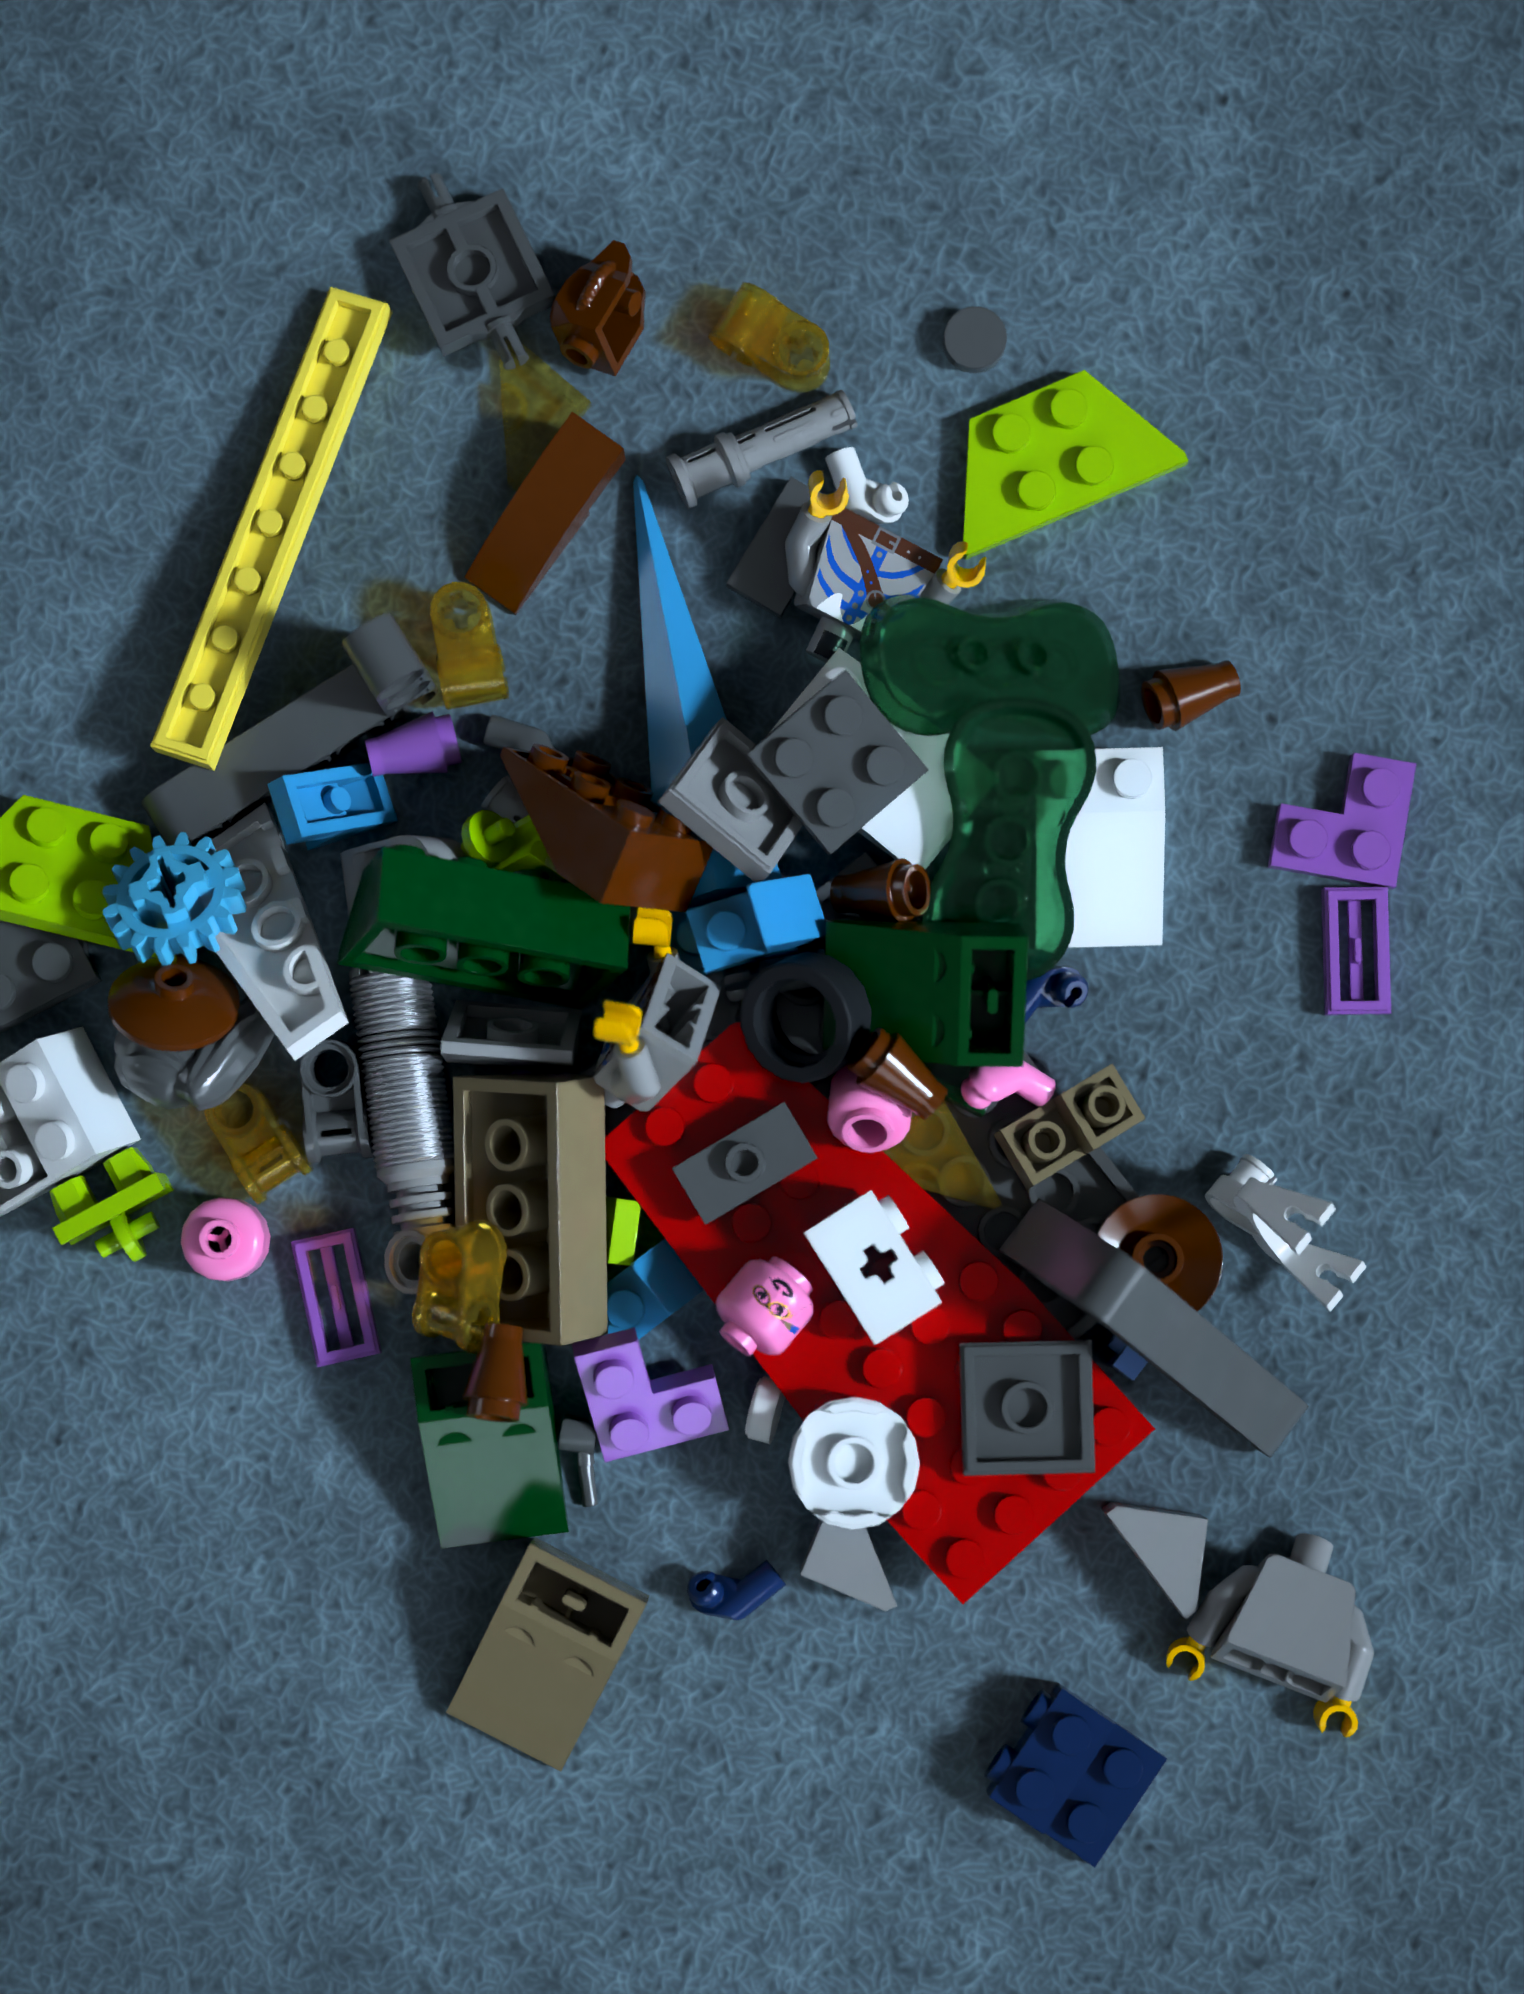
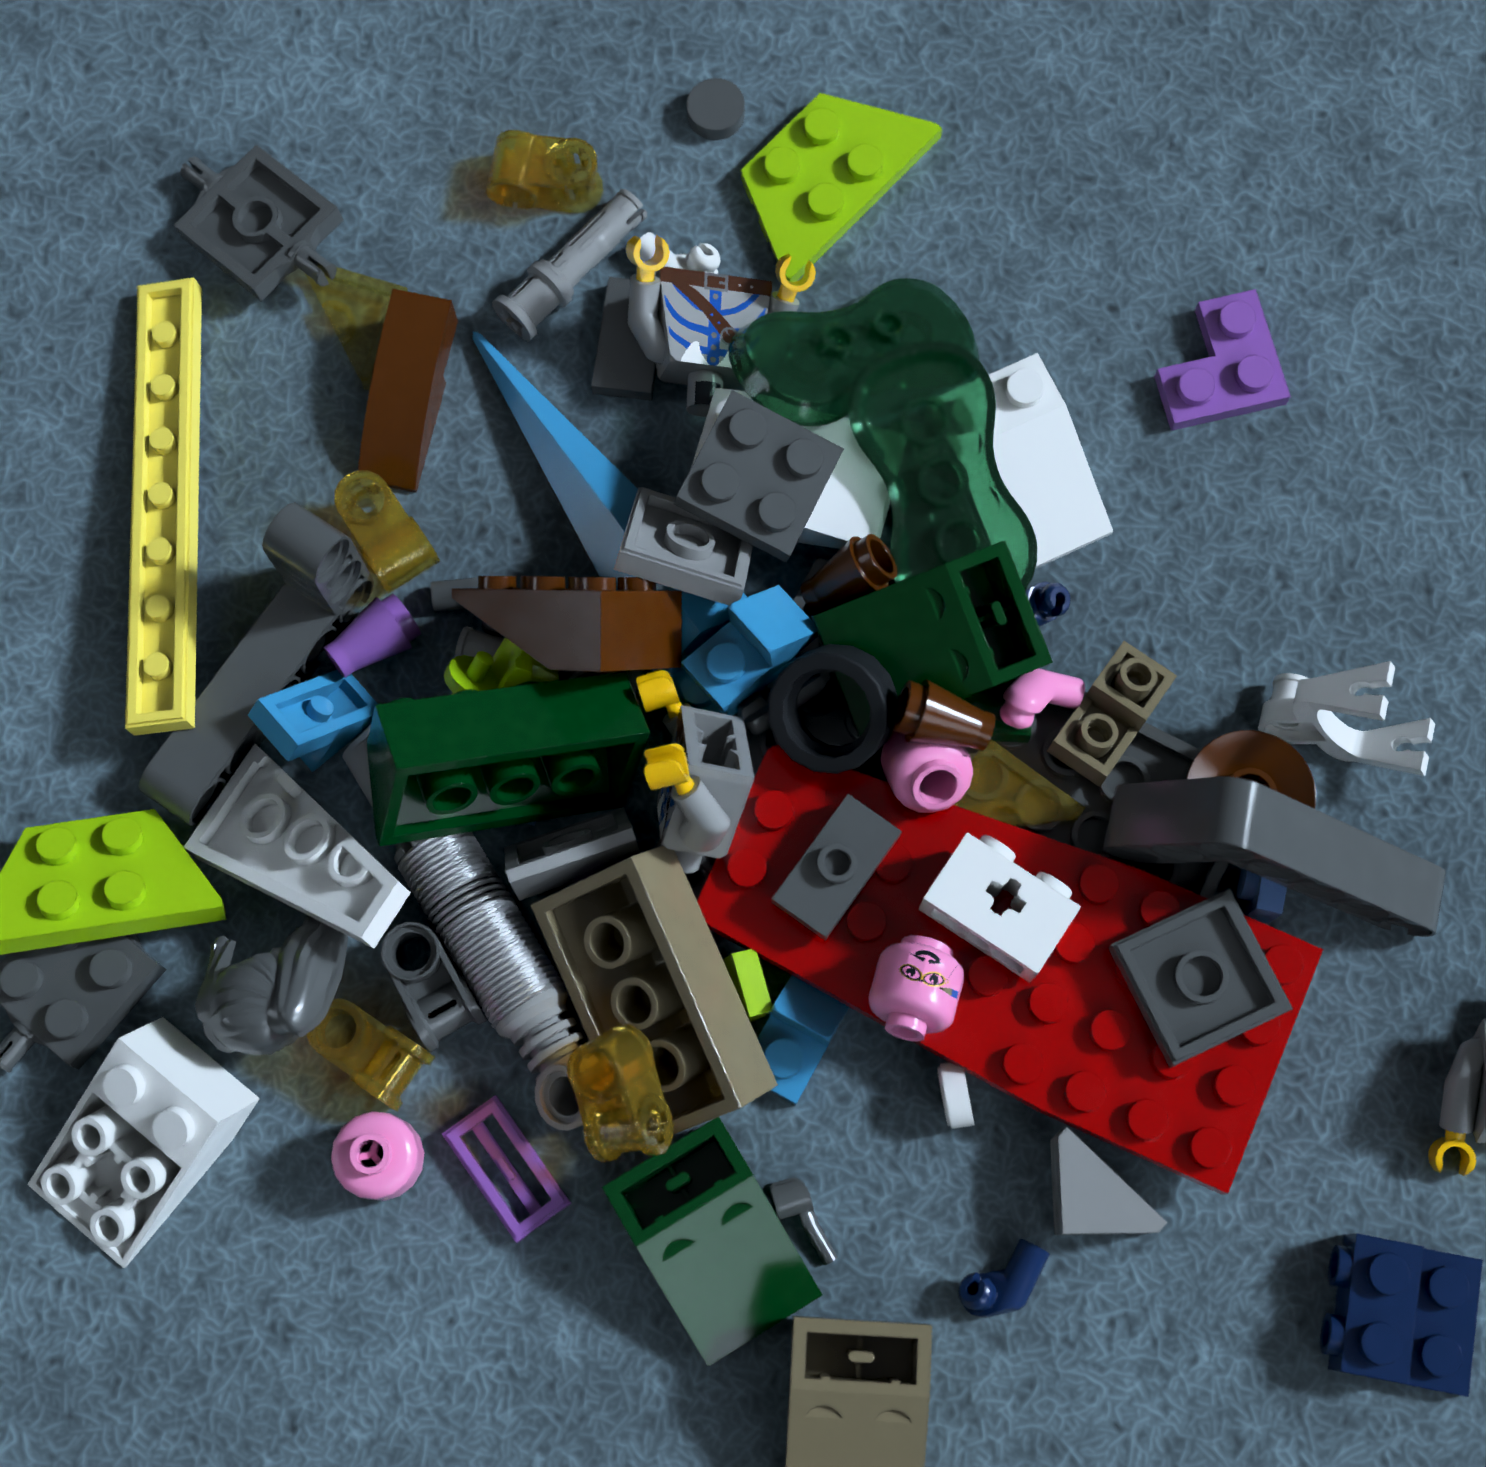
camera: 20 degrees left, 10 degrees down
(83, 1215) = (235, 1194): lime hips -> none
(173, 1004) = (237, 949): reddish brown dish -> none
(205, 898) = (201, 854): medium azure gear -> none
(498, 1376) = (694, 1166): reddish brown cone -> none
(600, 311) = (382, 207): reddish brown hand -> none
(642, 1413) = (840, 1149): medium lavender plate -> none
(853, 1462) = (1065, 1100): white tile -> none
(1167, 1546) = (1386, 1060): light grey slope -> none
(1187, 693) = (1030, 314): reddish brown cone -> none
(1331, 964) = (1262, 476): medium lavender tile -> none

